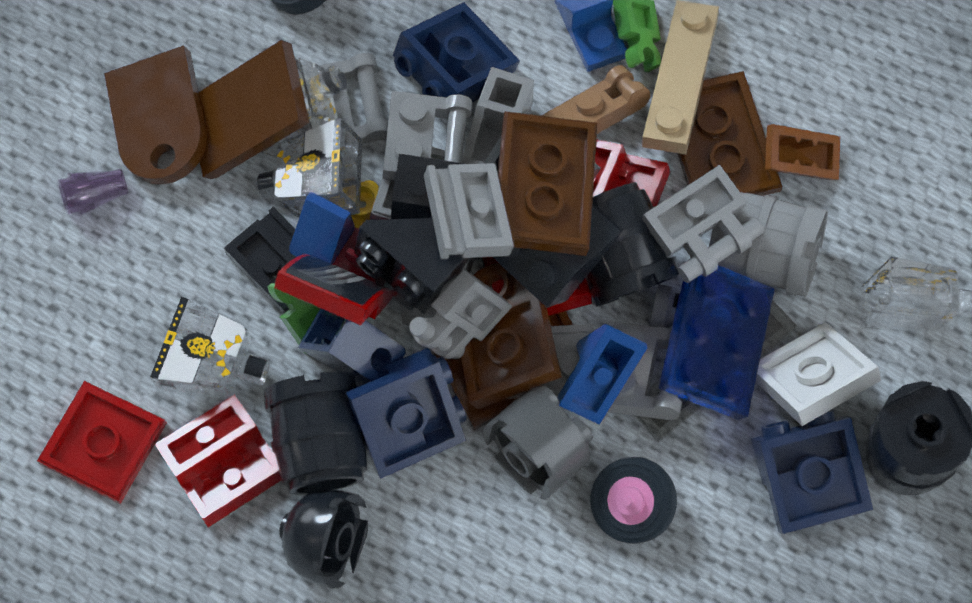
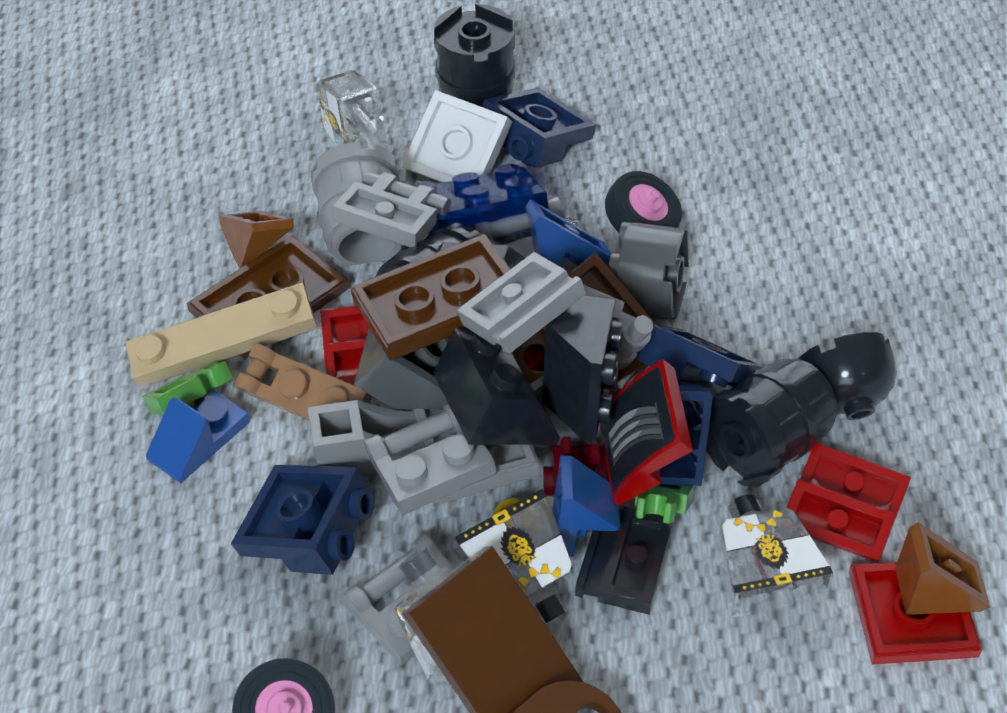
camera: 120 degrees left, 20 degrees down
(96, 457) = (938, 576): none -> dark orange slope

